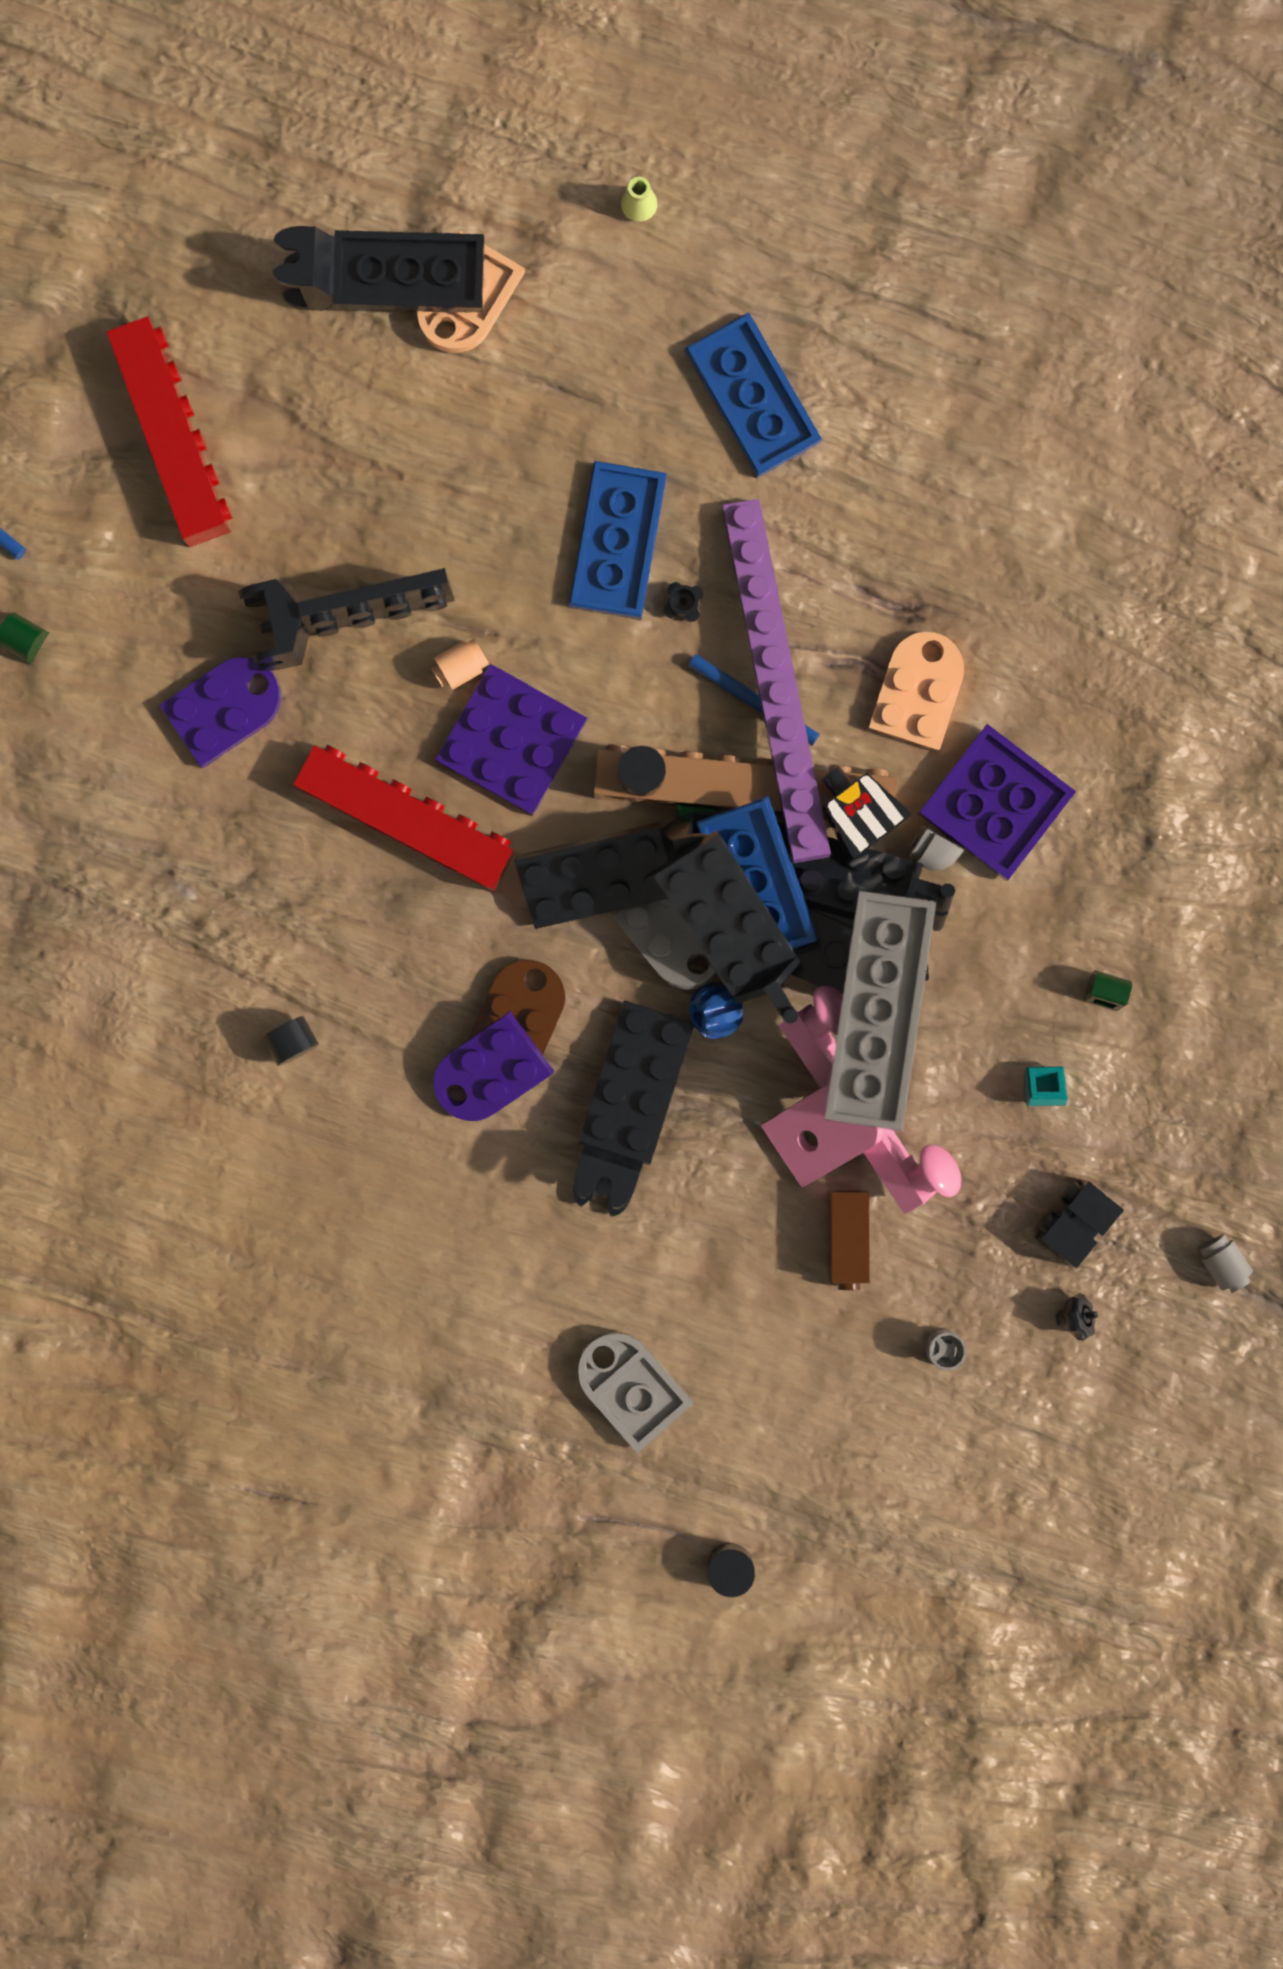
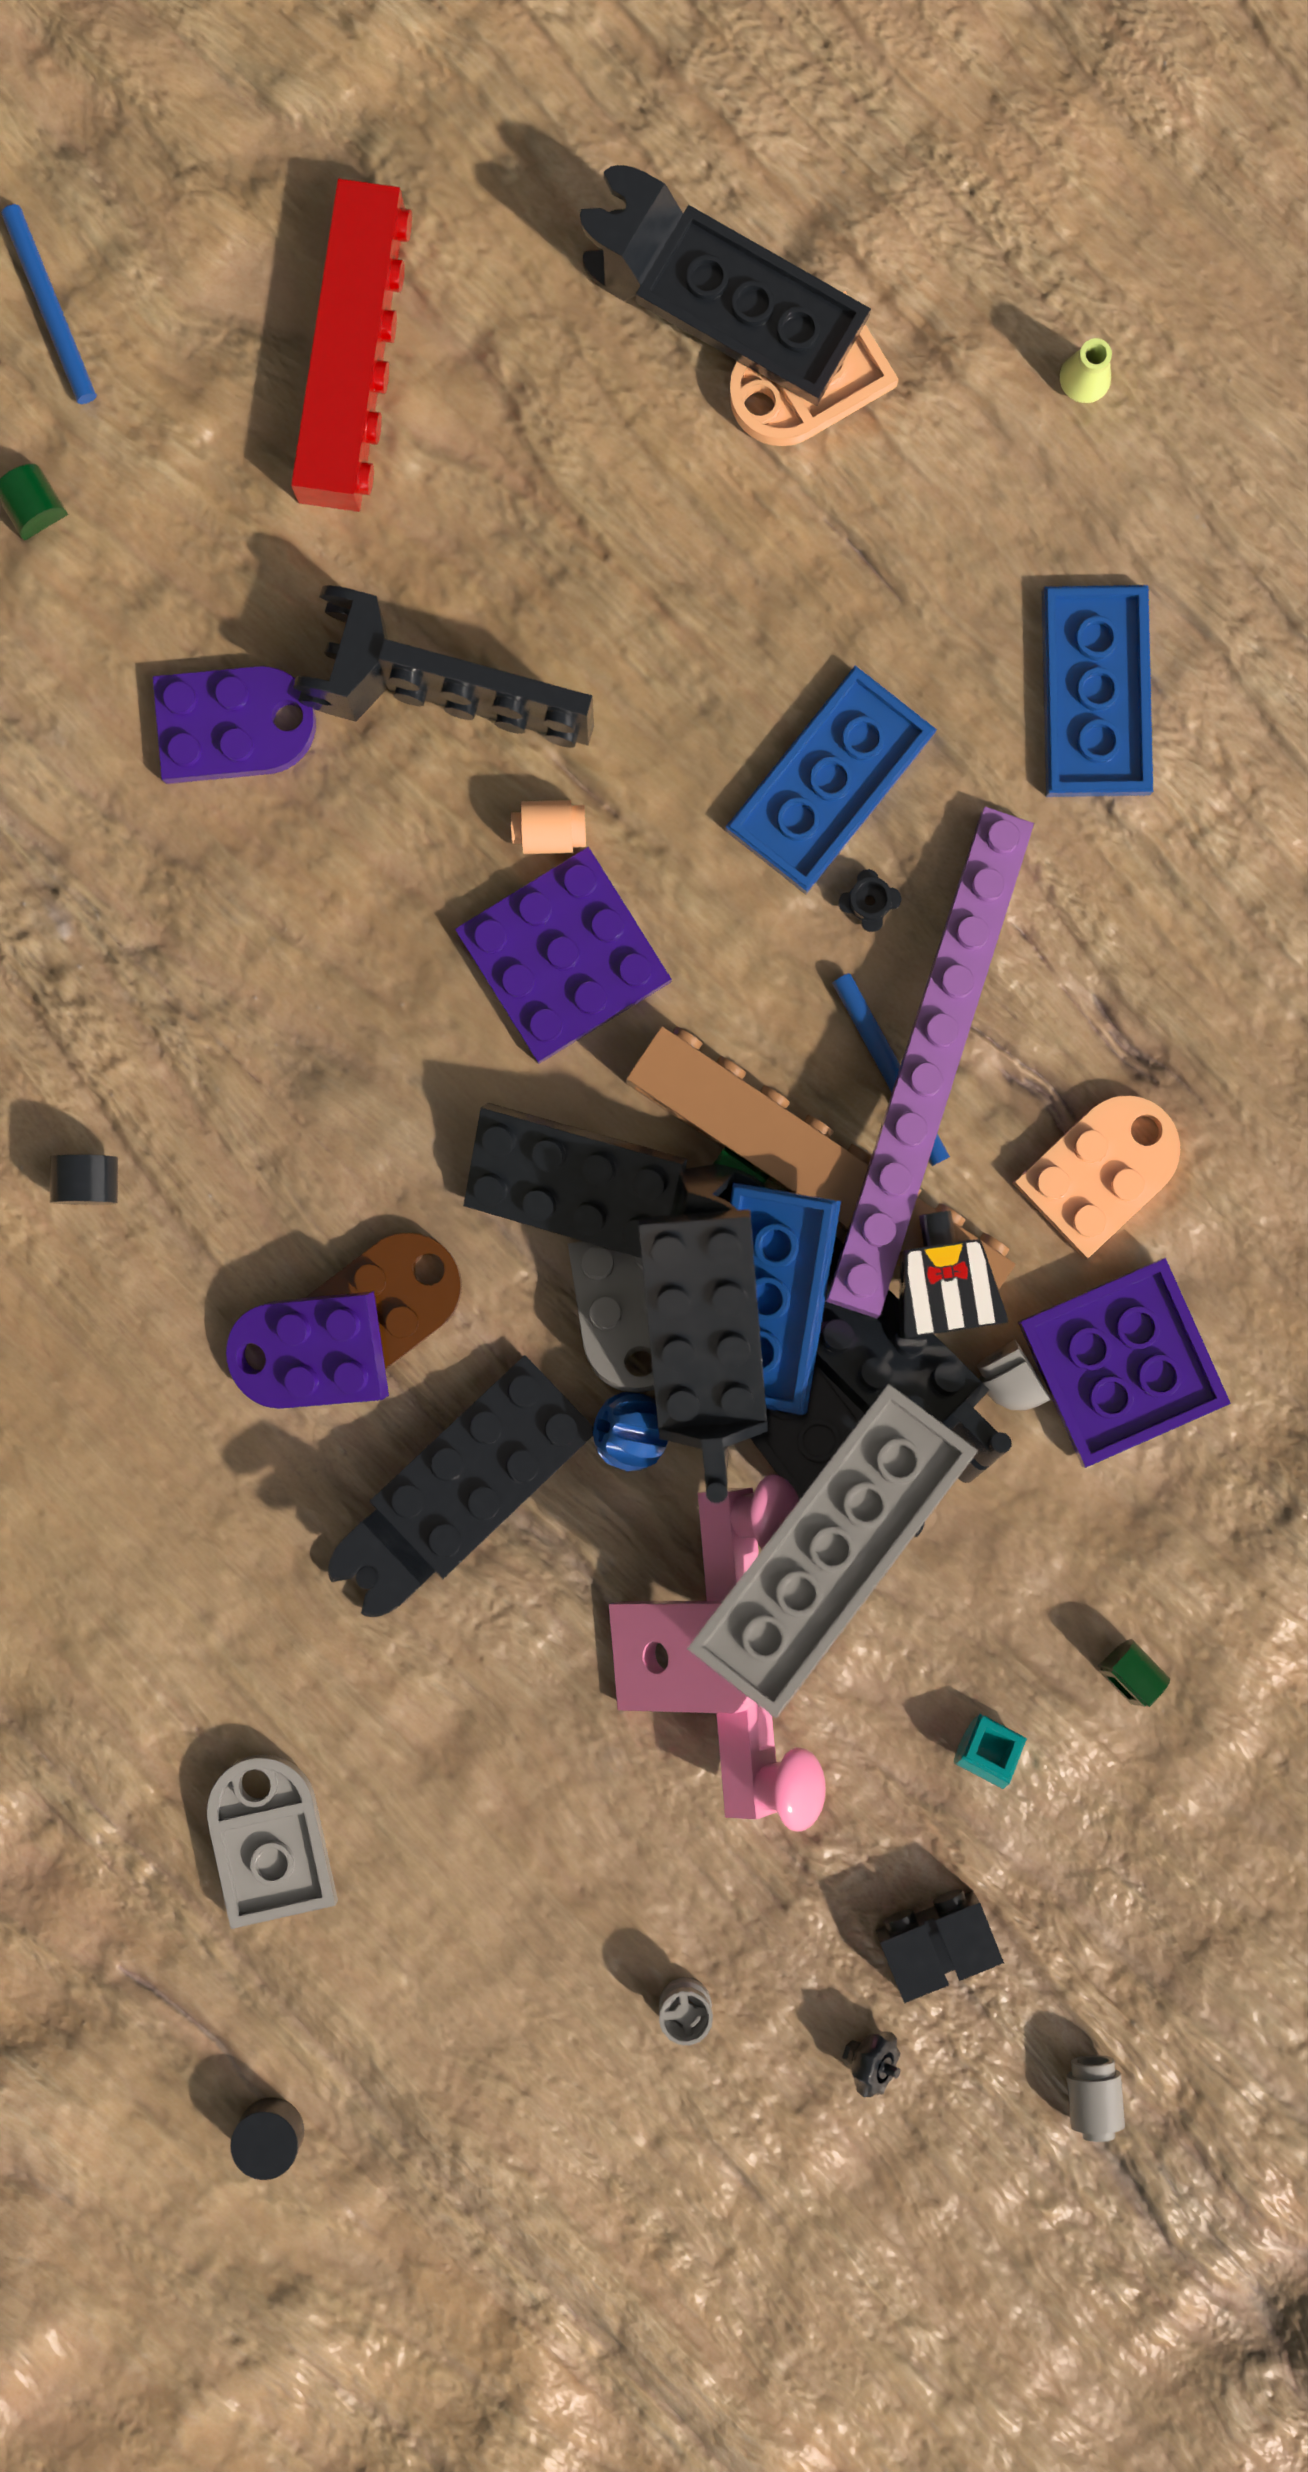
camera: 30 degrees right, 0 degrees up
(405, 818) = (377, 981): red brick -> none
(642, 771) = (700, 1083): black piece -> none
(849, 1239) = (641, 1806): reddish brown brick -> none

